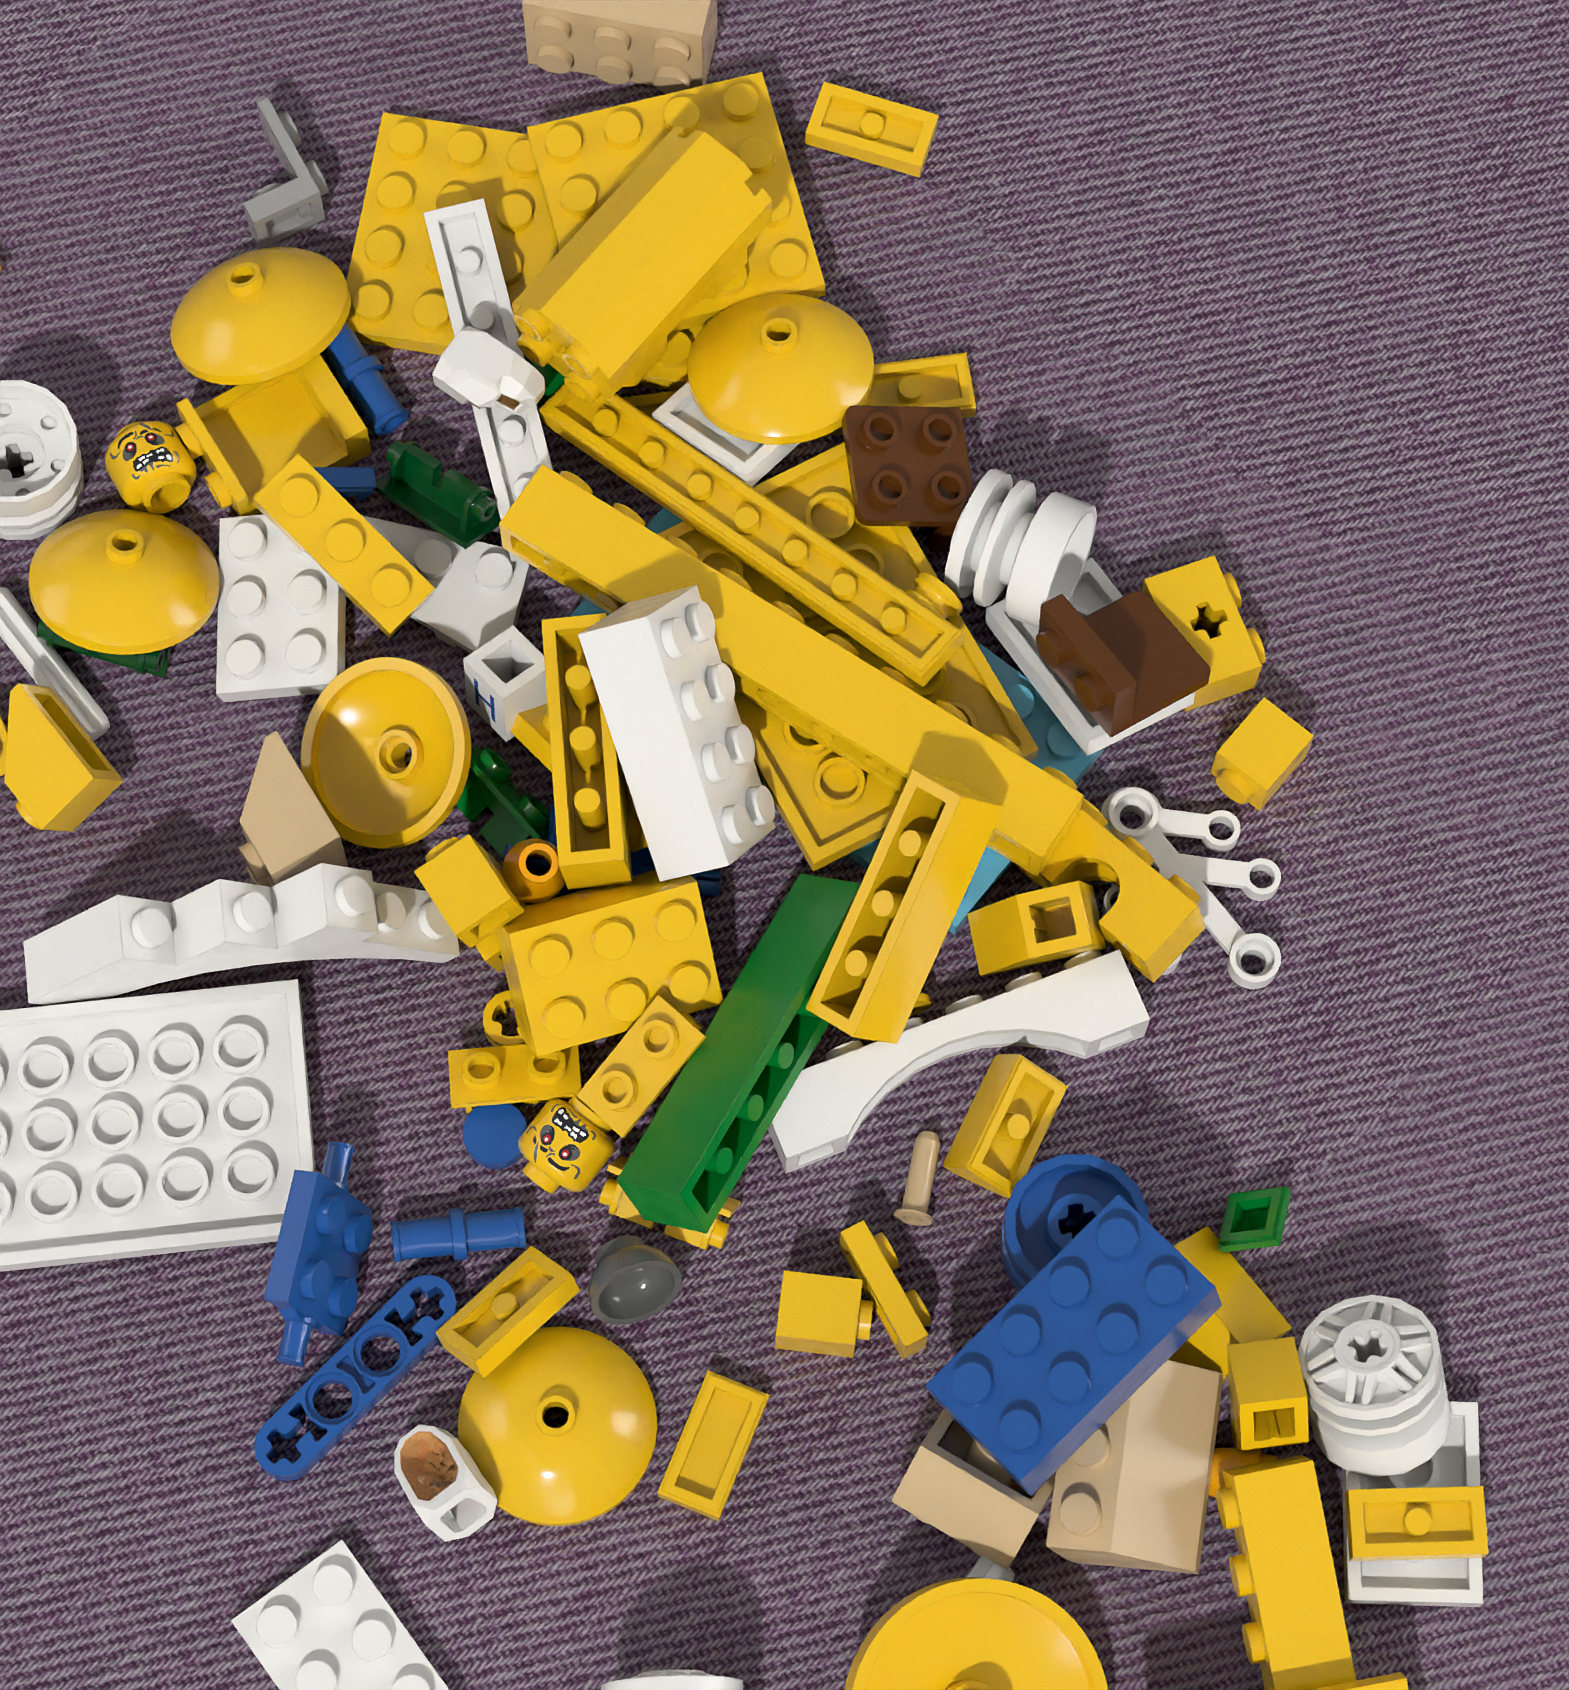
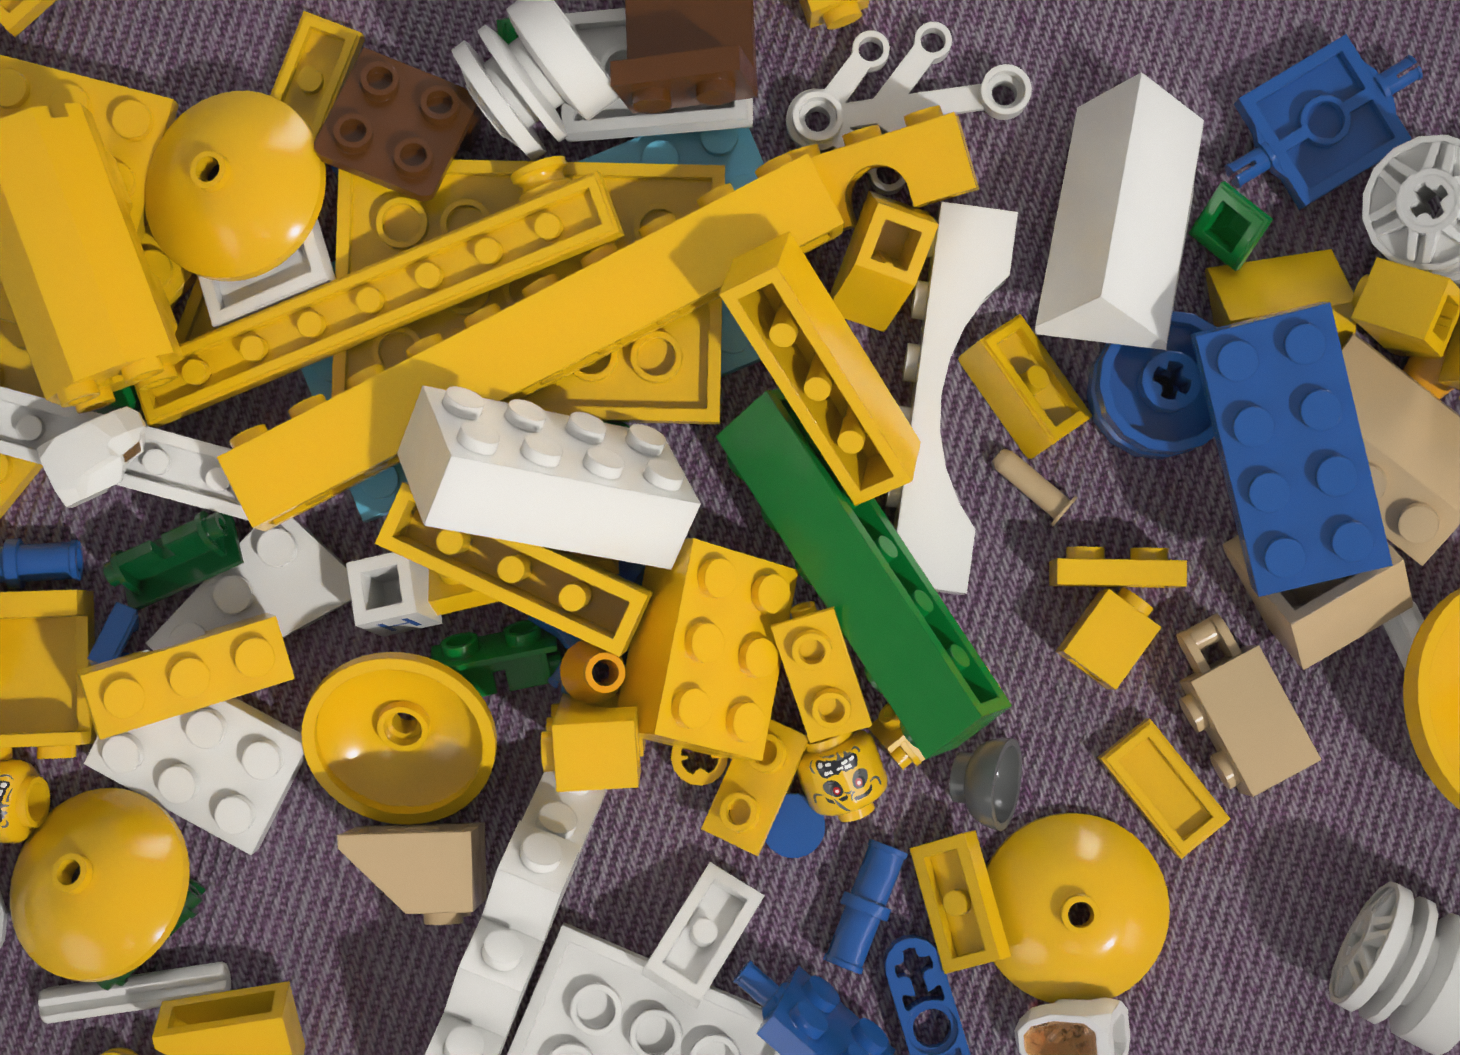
camera: 55 degrees left, 15 degrees up
(355, 1101) = (702, 935): none -> white plate
(822, 1470) = (1242, 711): none -> tan brick
(1200, 1113) = (1122, 218): none -> white slope
(1399, 1246) = (1322, 121): none -> blue plate

